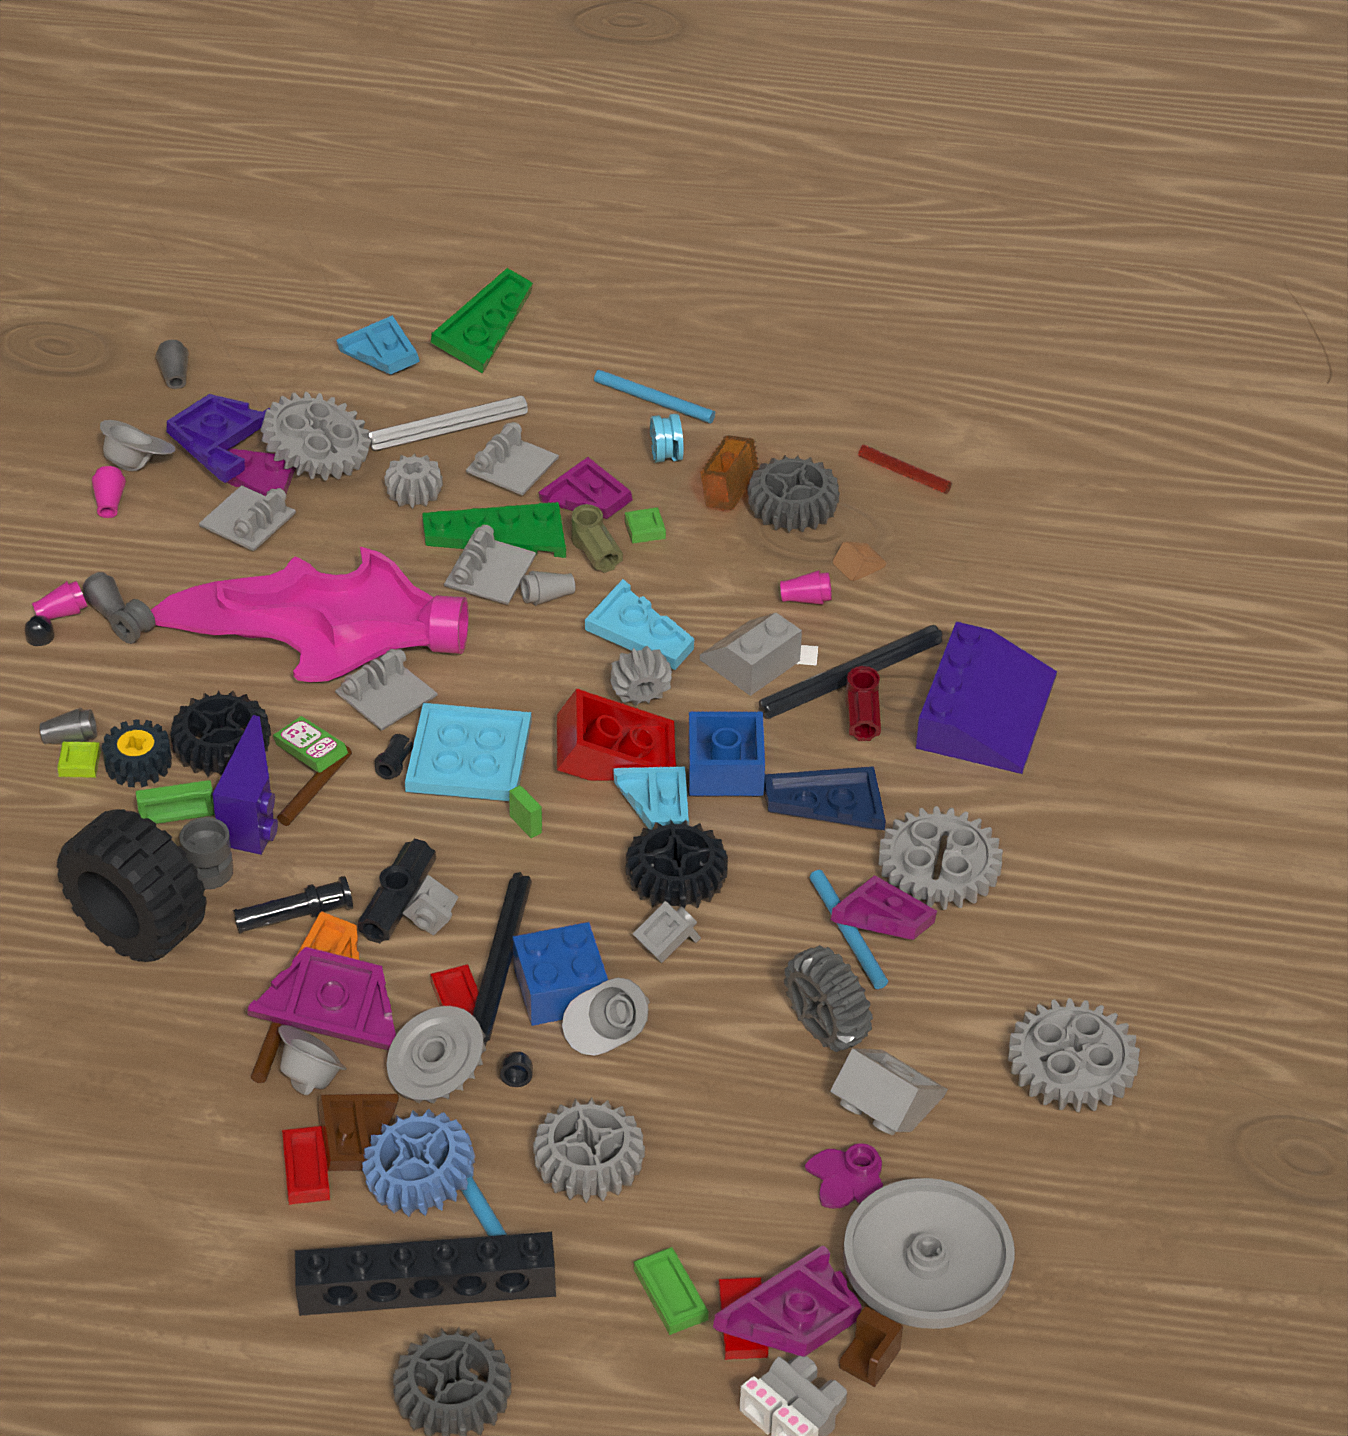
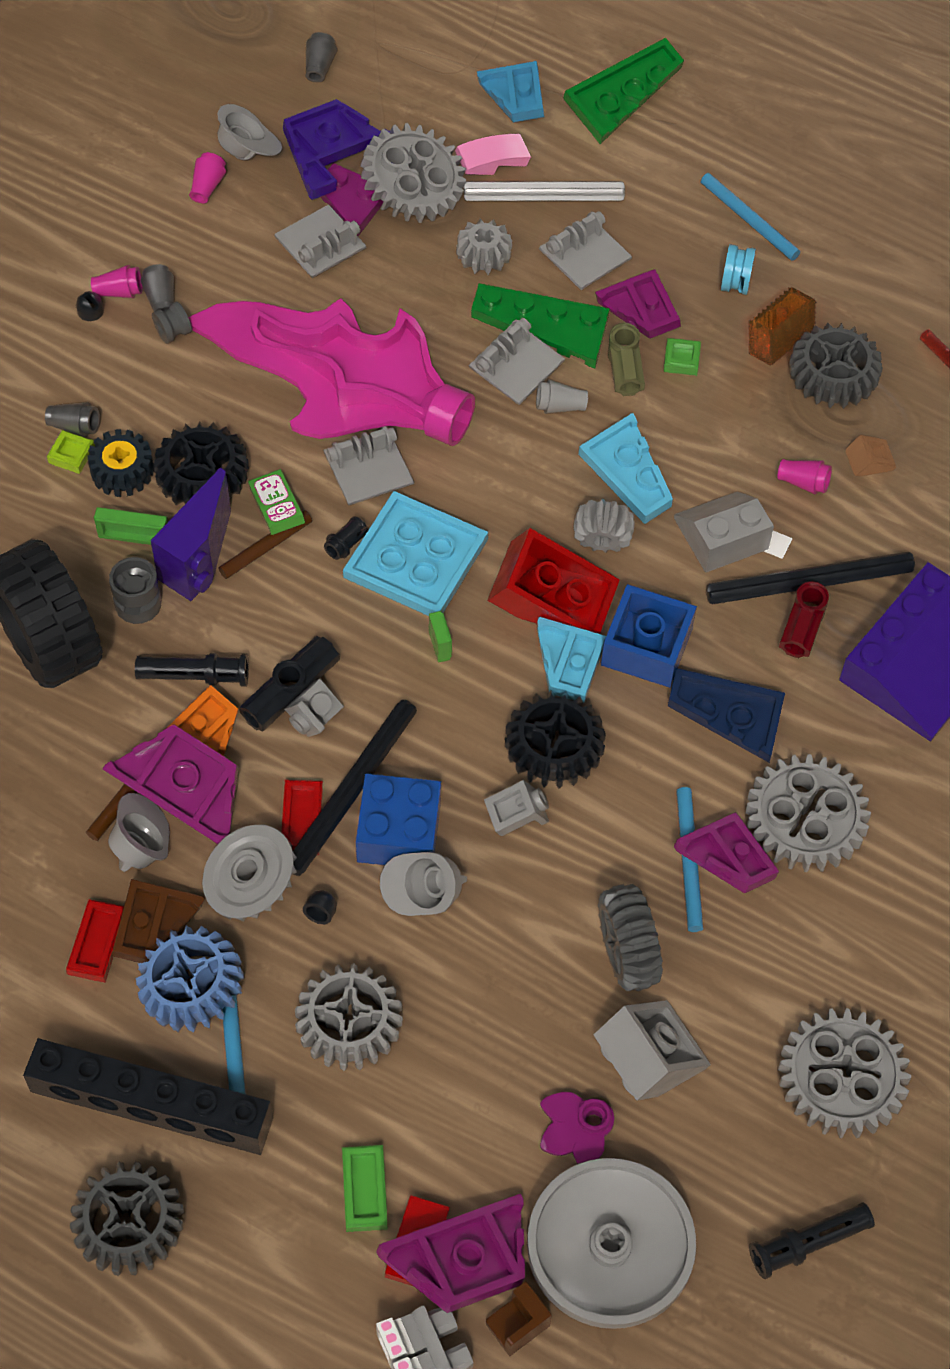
camera: 20 degrees right, 15 degrees up
(379, 404) = (487, 153): none -> bright pink slope
(1095, 1207) = (791, 1242): none -> black pin

